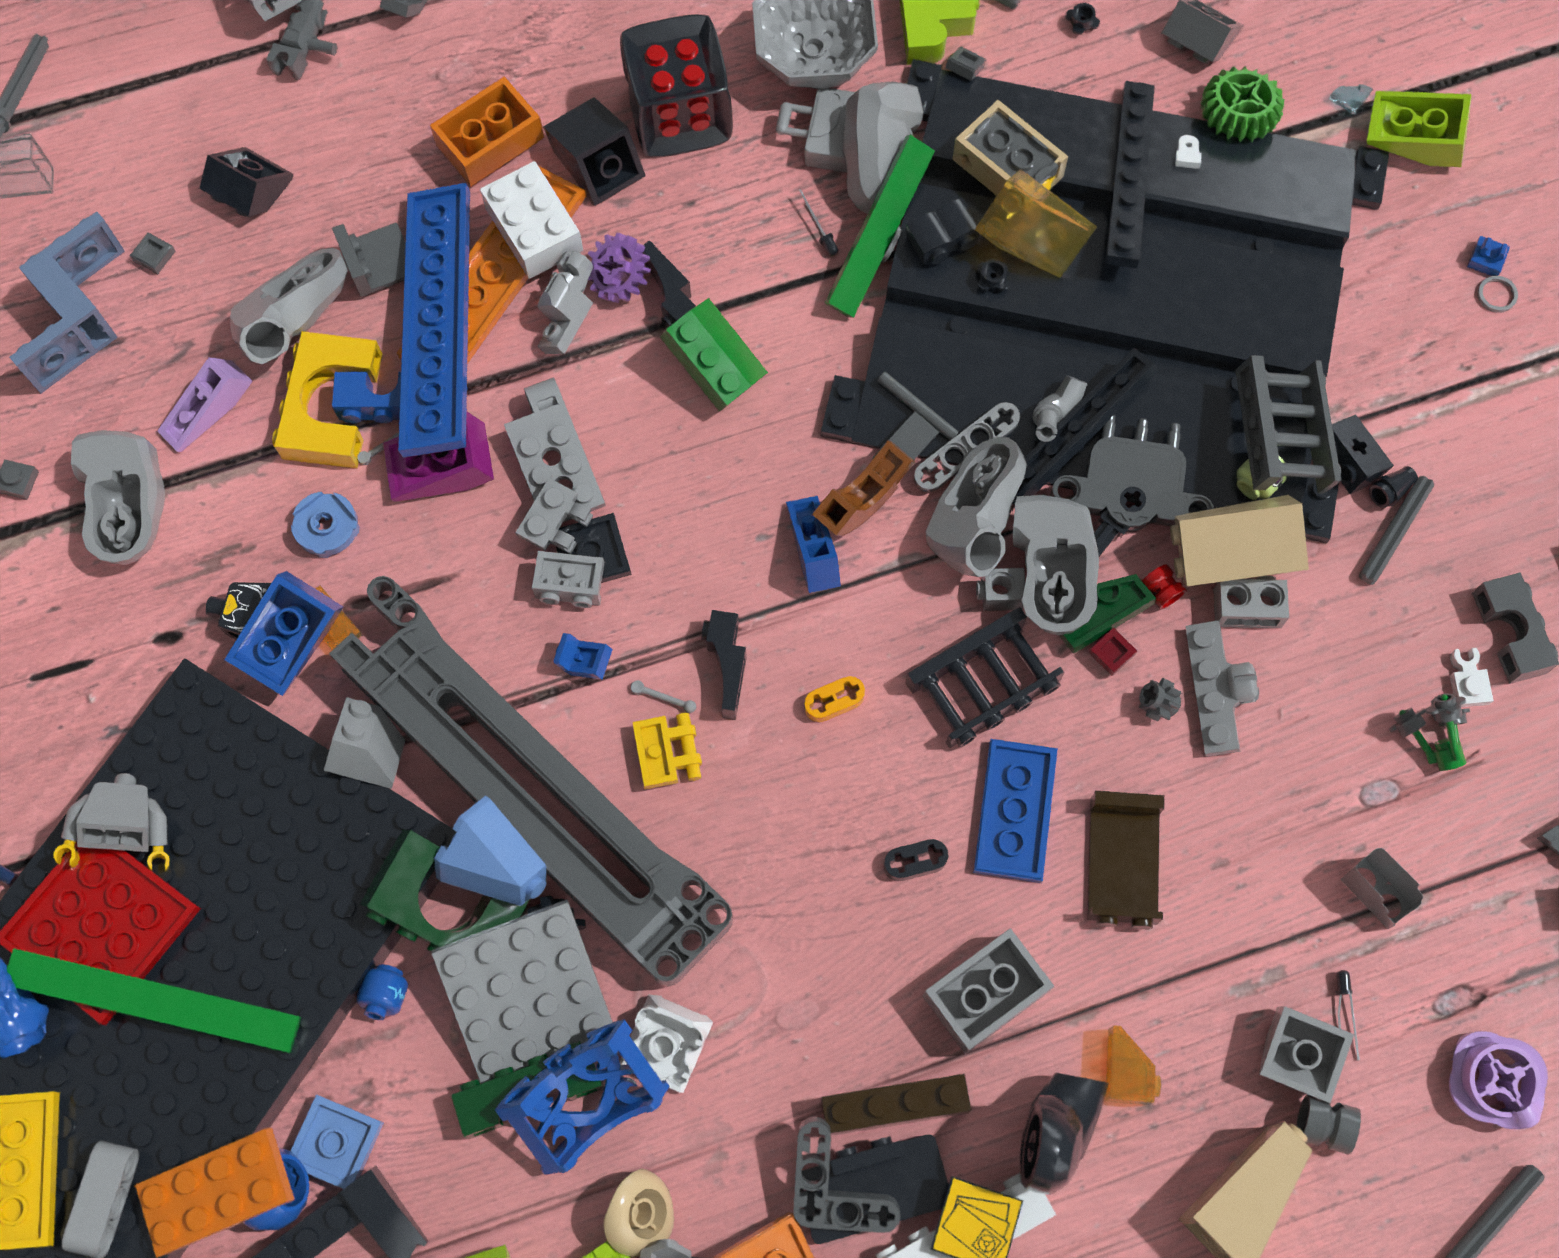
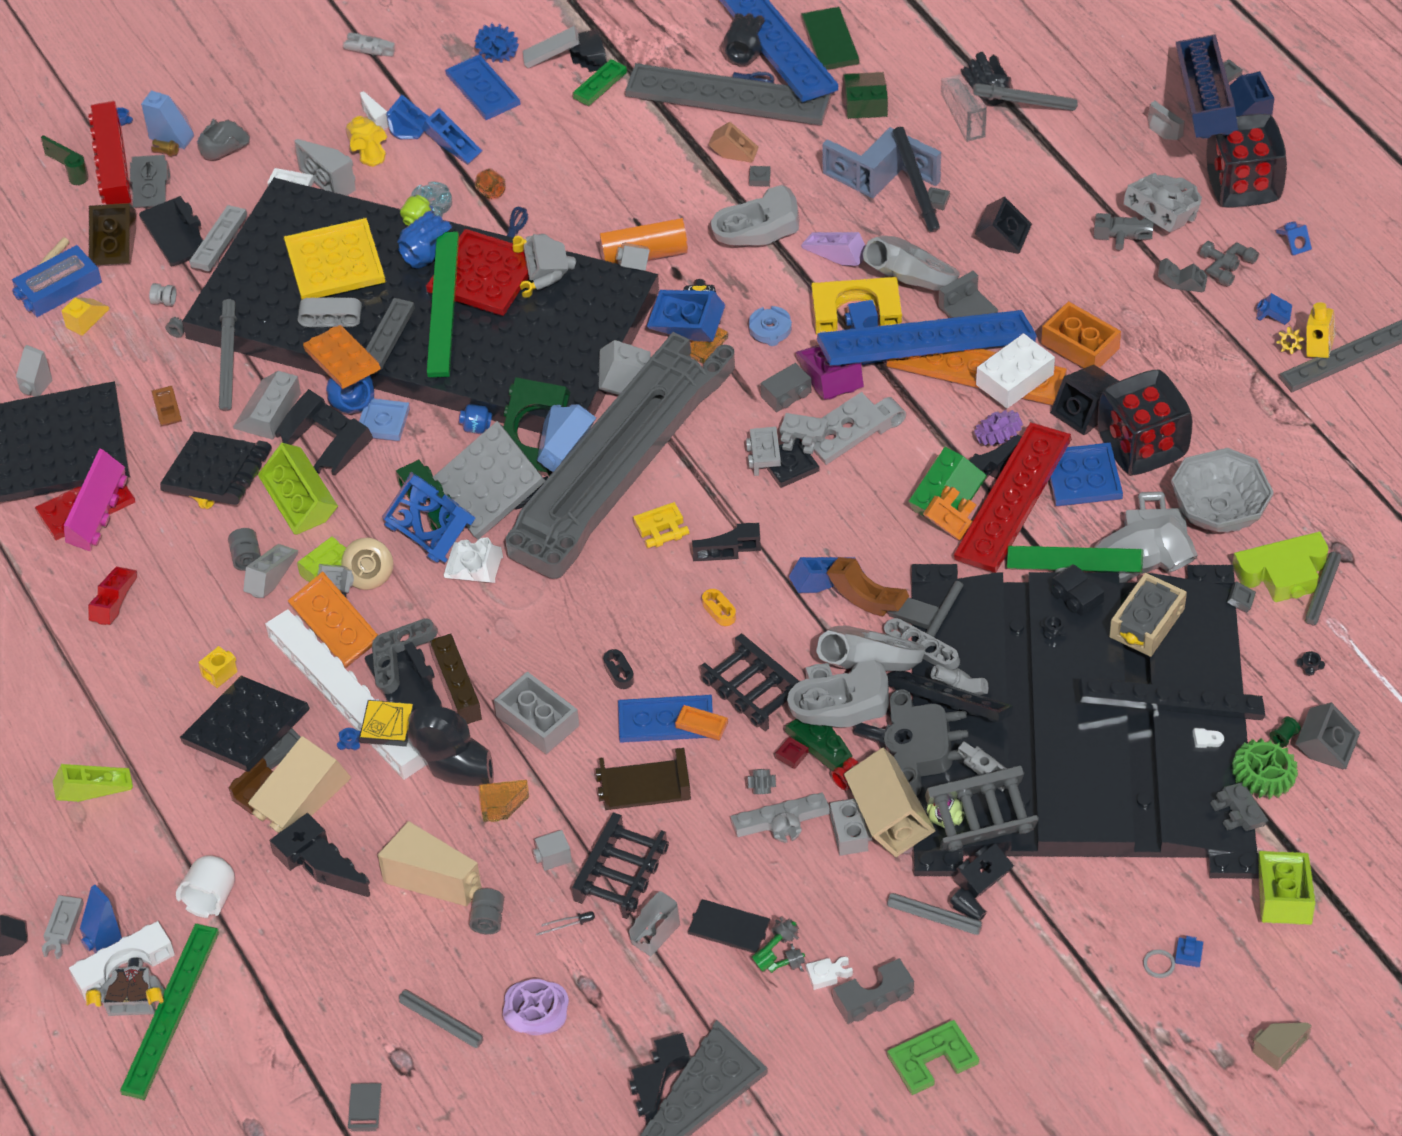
camera: 80 degrees right, 20 degrees down
(110, 670) = (661, 238): none -> orange brick
(125, 261) = (916, 179): none -> black axle
(139, 686) = (632, 256): none -> light grey brick
(178, 1102) = (390, 329): none -> dark grey plate
(456, 526) = (786, 387): none -> dark grey brick
(565, 302) = (962, 404): light grey plate -> none
(582, 657) = (712, 467): blue bracket -> none
(638, 688) = (701, 506): light grey hinge -> none
(719, 189) = (1086, 475): none -> blue plate
(745, 278) = (1012, 497): none -> red plate
(760, 357) = (948, 518): none -> orange plate
(827, 240) = (1065, 543): black piece -> none
(1035, 225) = (1090, 627): clear yellow slope -> none
(1043, 760) = (701, 722): none -> orange tile
(1185, 70) = (1285, 731): none -> dark green bush
(1206, 408) = (976, 758): none -> light grey hinge
(1230, 1011) = (552, 850): none -> light grey brick
(1269, 953) = (605, 849): none -> black fence
(1293, 142) = (1243, 806): none -> dark grey plate
(1305, 1053) = (531, 889): light grey slope -> none
(1351, 97) = (1305, 845): clear light blue tile -> none
(1378, 792) = (729, 926): none -> black piece

